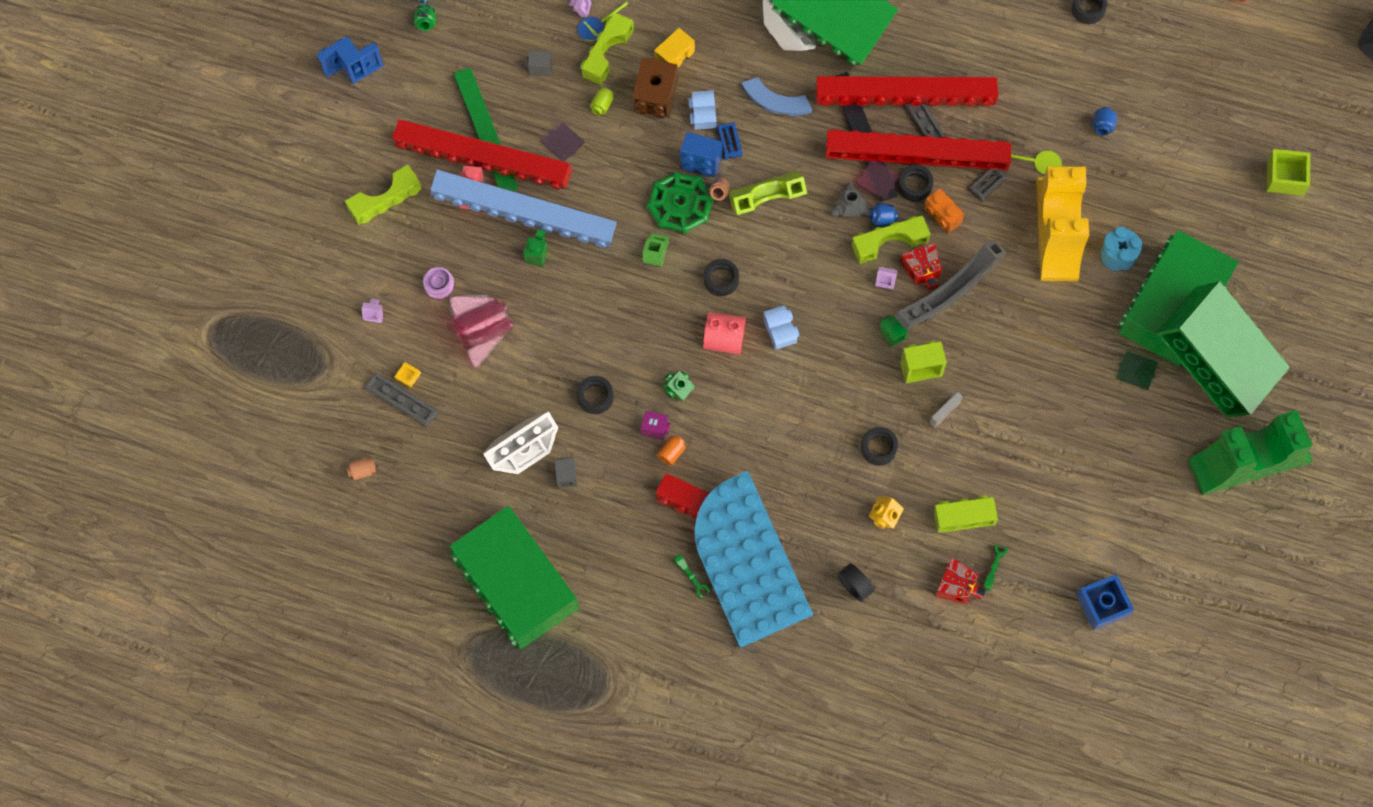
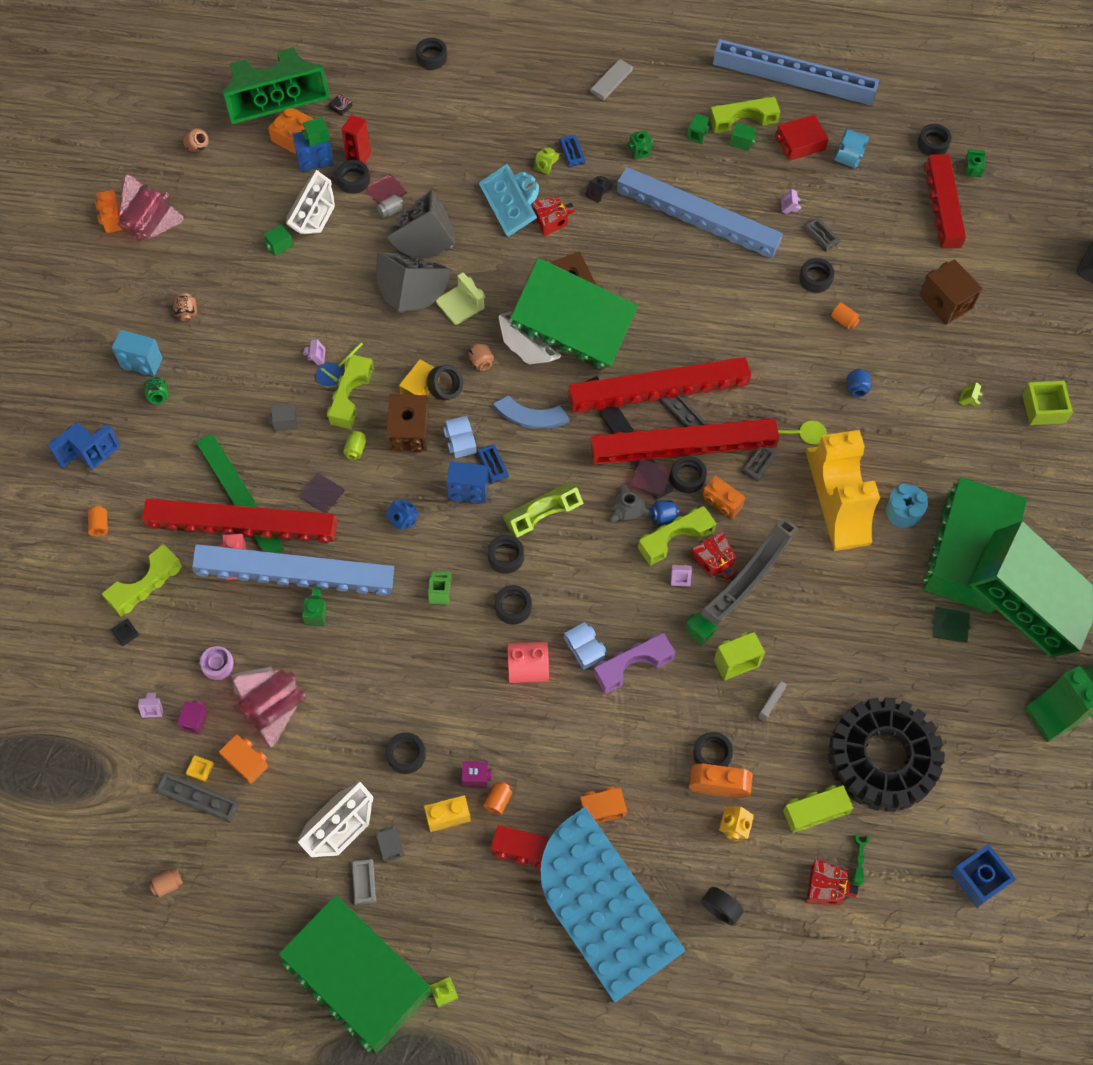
camera: 15 degrees left, 5 degrees down
(351, 133) = (97, 521): none -> orange brick
(360, 240) = (125, 632): none -> black tile
(408, 327) = (192, 717): none -> magenta brick
(448, 373) = (244, 759): none -> orange brick
(536, 501) = (363, 882): none -> light grey tile
(589, 609) = (444, 992): none -> lime tile
(622, 455) = (447, 813): none -> yellow brick
(633, 174) = (402, 514): none -> blue brick
(677, 385) = (491, 727): brick -> none
(680, 563) = (532, 920): green piece -> none
(684, 211) = (455, 544): green plate -> none
(711, 54) = (457, 382): none -> black tyre
(719, 189) = (493, 519): nougat brick -> none
(724, 216) = (507, 540): none -> black tyre
(738, 35) = (480, 357): none -> nougat head
(767, 474) = (605, 805): none -> orange brick
(846, 344) = (655, 651): none -> medium lavender arch
(879, 472) = (720, 781): none -> orange brick
(1035, 508) = (872, 784): none -> black tyre
(1107, 52) = (845, 316): none -> orange brick
(1213, 152) = (970, 394): none -> lime tile
(1219, 44) = (950, 291): none -> reddish brown brick

